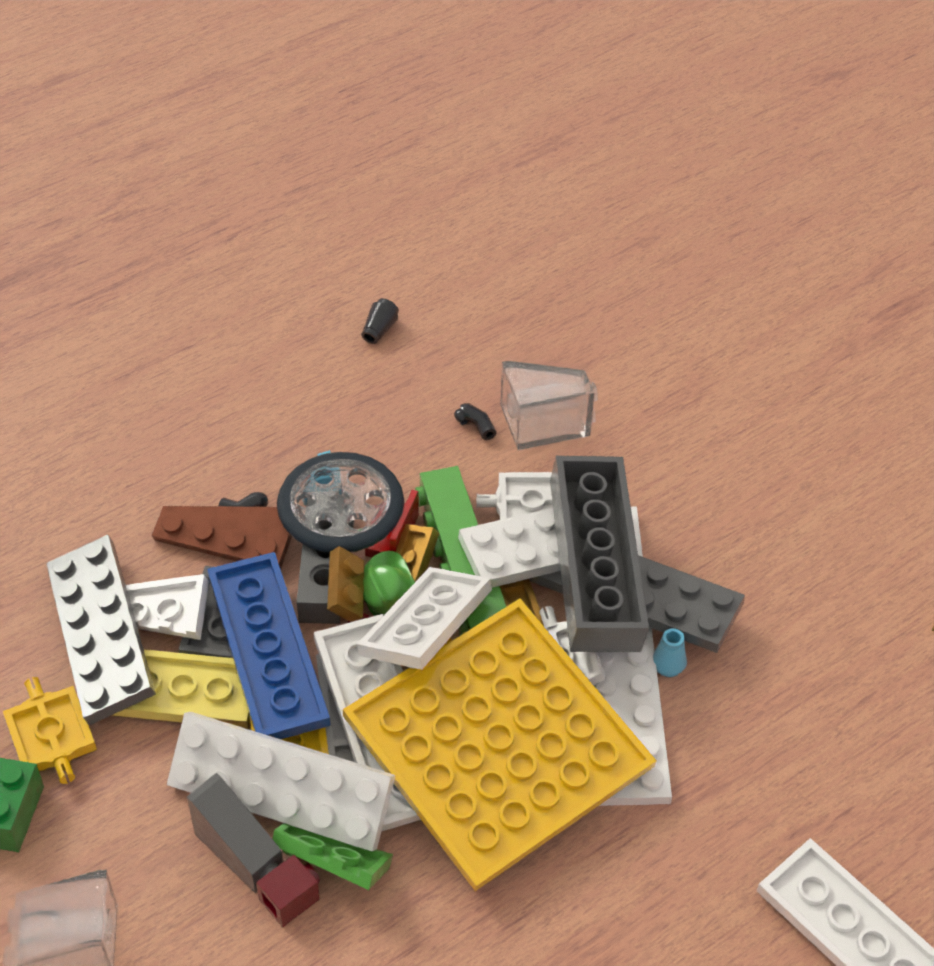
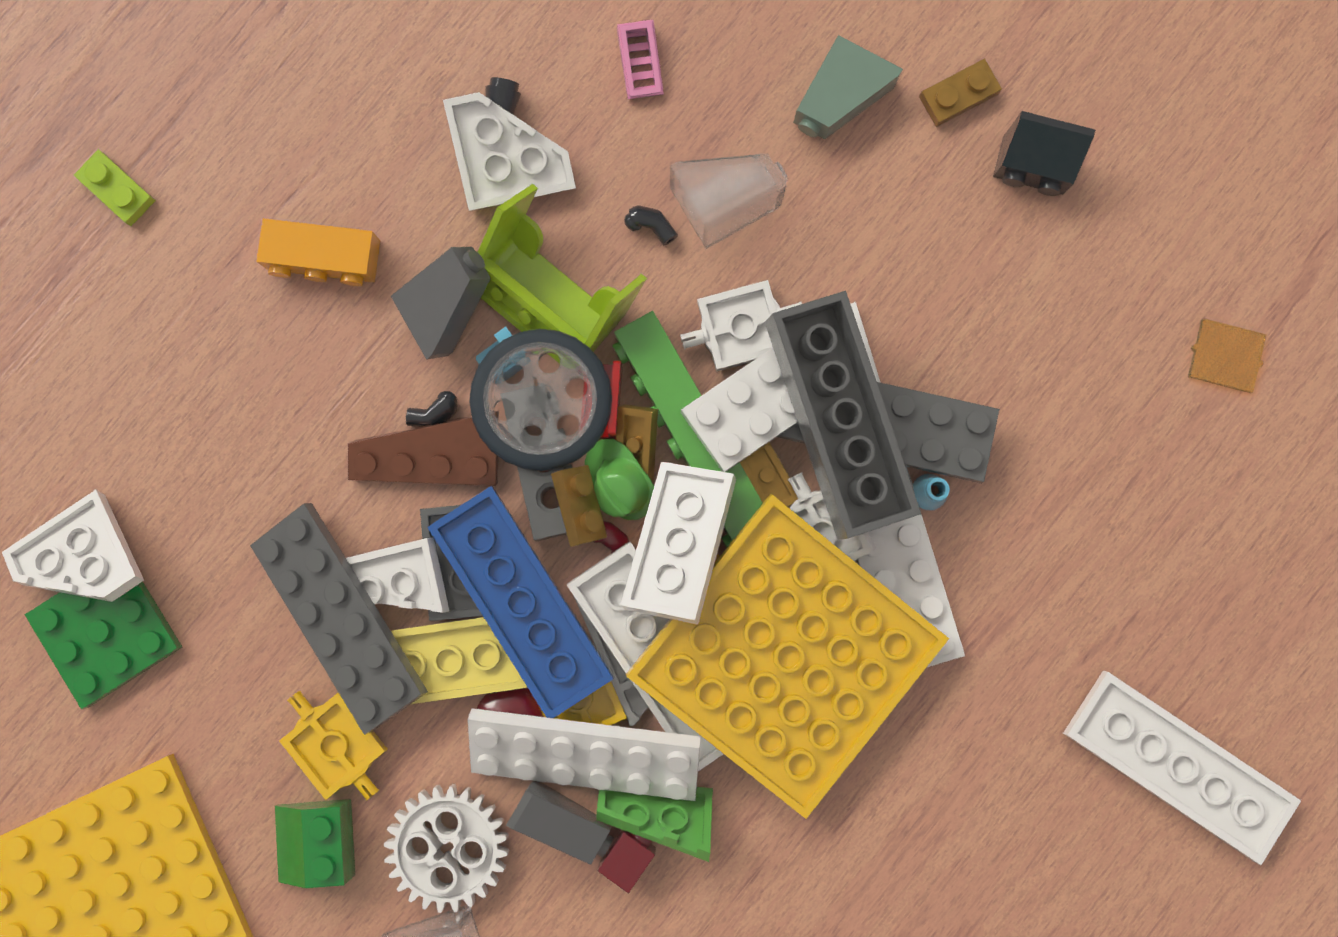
camera: 10 degrees left, 35 degrees up
(51, 312) = (114, 187): none -> lime plate
(152, 825) = (419, 870): none -> white gear
(195, 378) = (318, 252): none -> light orange brick
(285, 422) = (442, 300): none -> dark grey slope
(348, 424) = (534, 291): none -> lime windscreen
(370, 348) = (502, 153): none -> white plate
(505, 298) = (638, 29): none -> bright pink slope
(663, 365) = (844, 88): none -> sand green slope
(762, 390) = (960, 92): none -> pearl gold plate
(822, 431) = (1042, 153): none -> black slope

